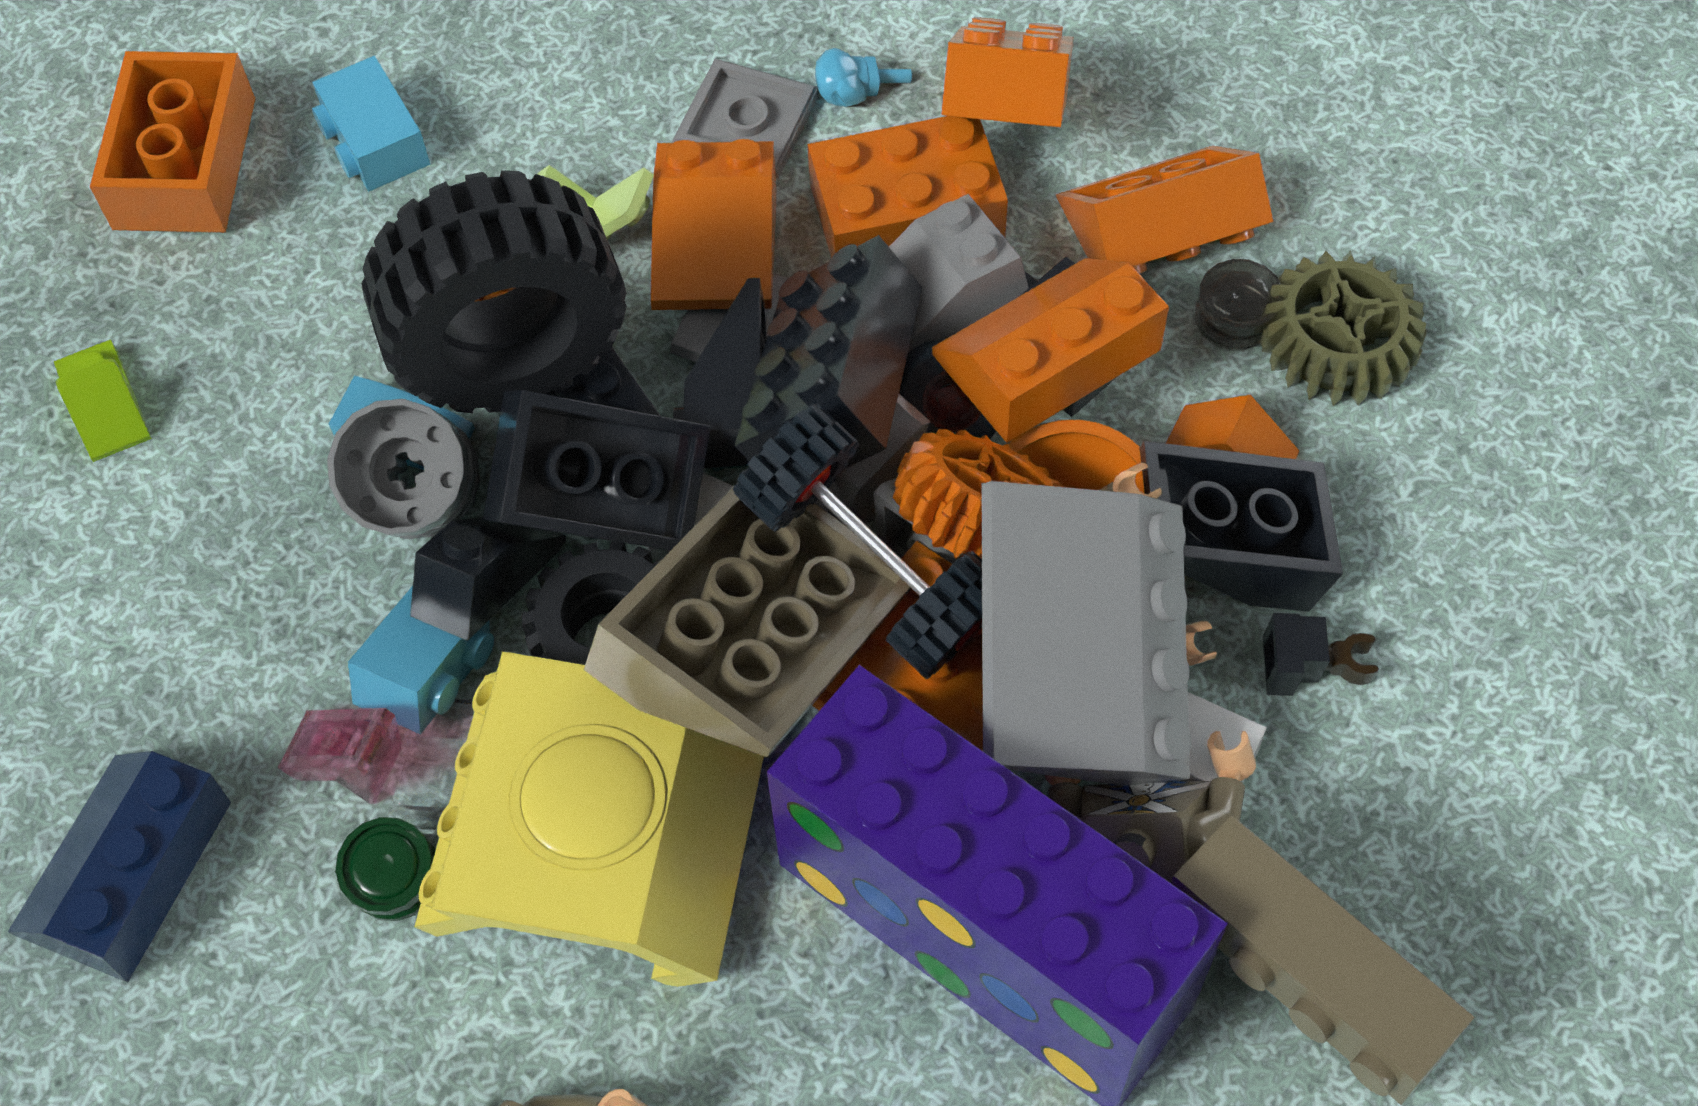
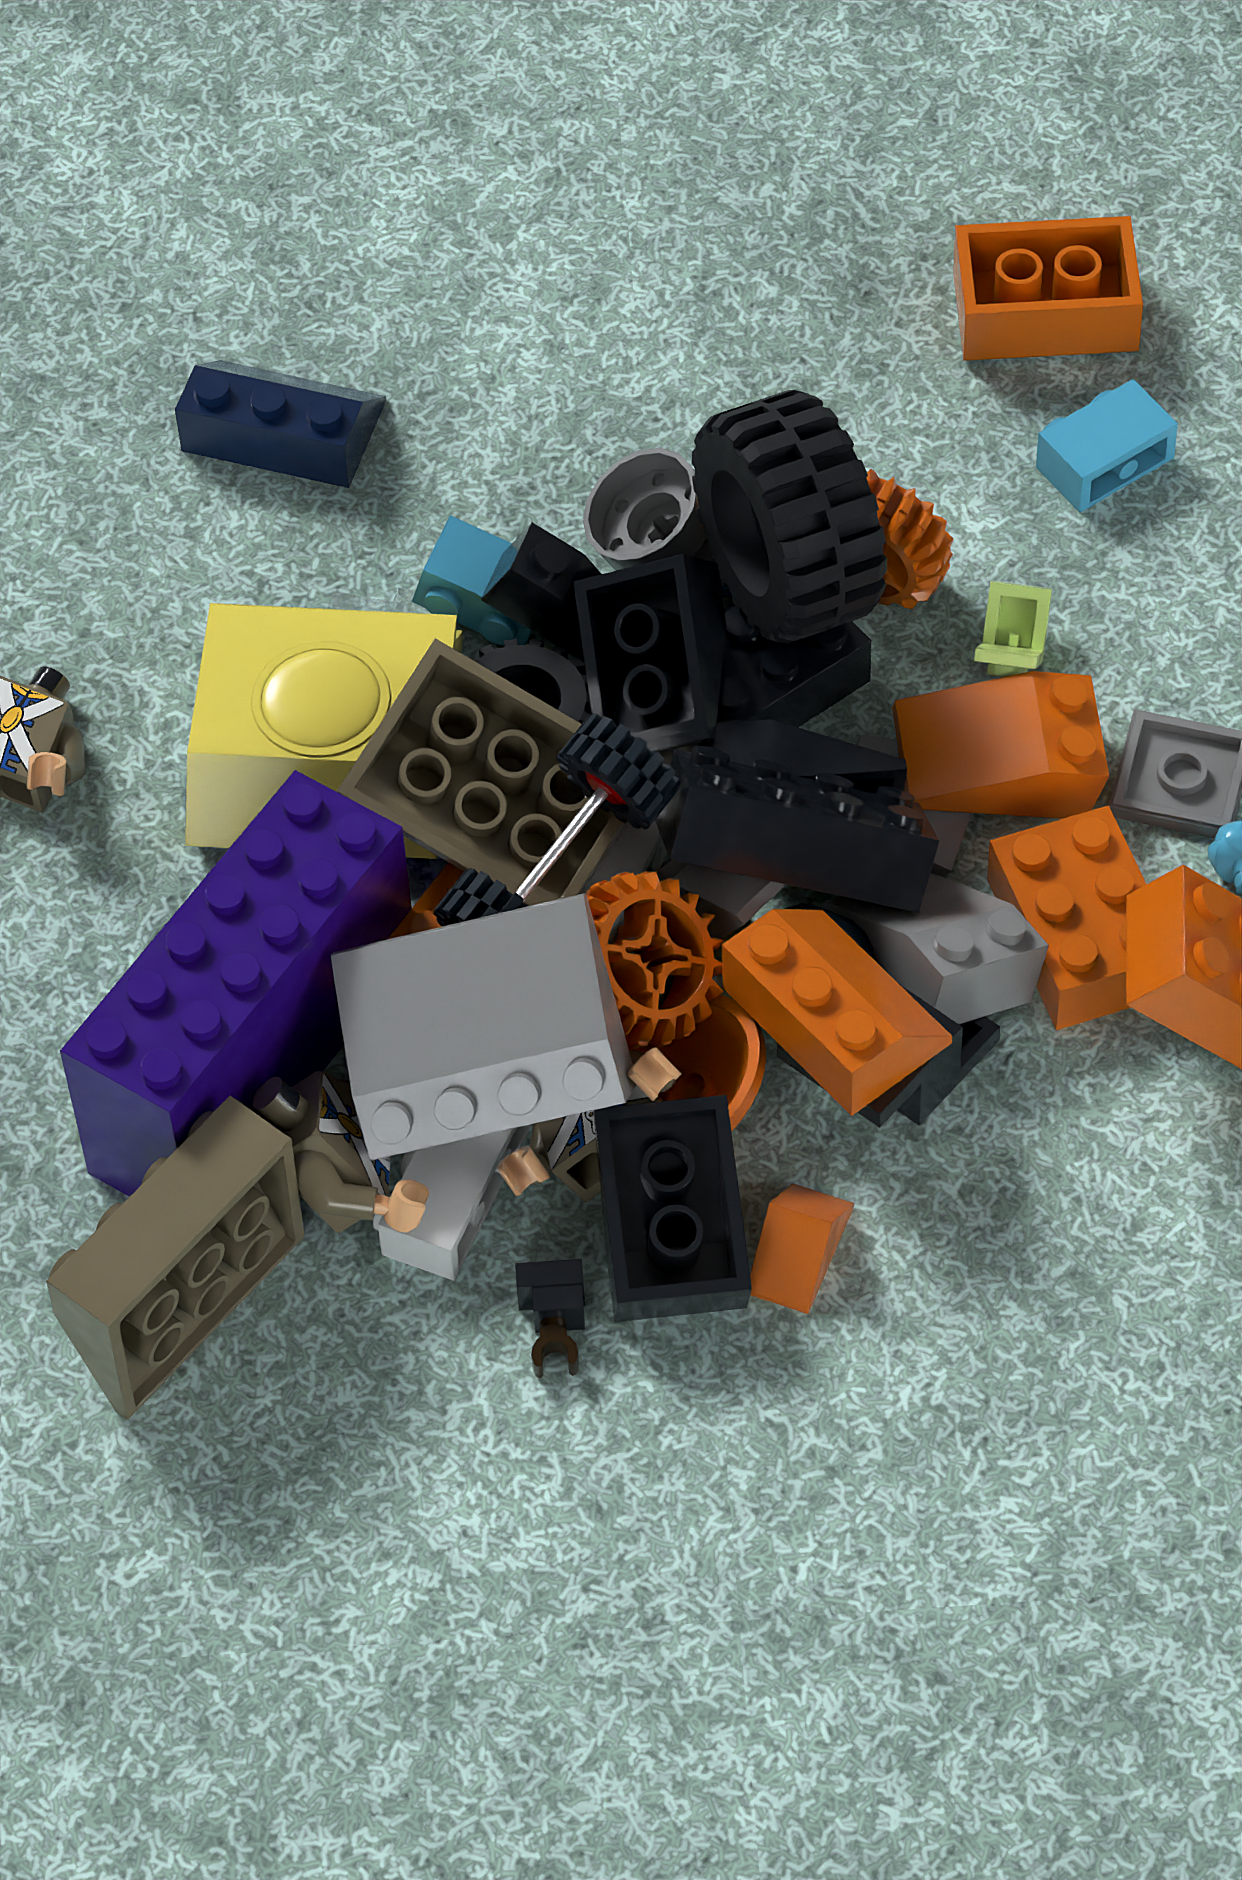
camera: 85 degrees right, 5 degrees down
(101, 400) = (749, 304): lime slope -> none
(345, 747) = (386, 550): clear pink slope -> none
(384, 867) = (280, 582): dark green wheel -> none
(1170, 207) = (1103, 1163): orange slope -> none
(1234, 304) = (981, 1240): clear smoke wheel -> none
(1330, 339) = (1008, 1316): olive gear -> none

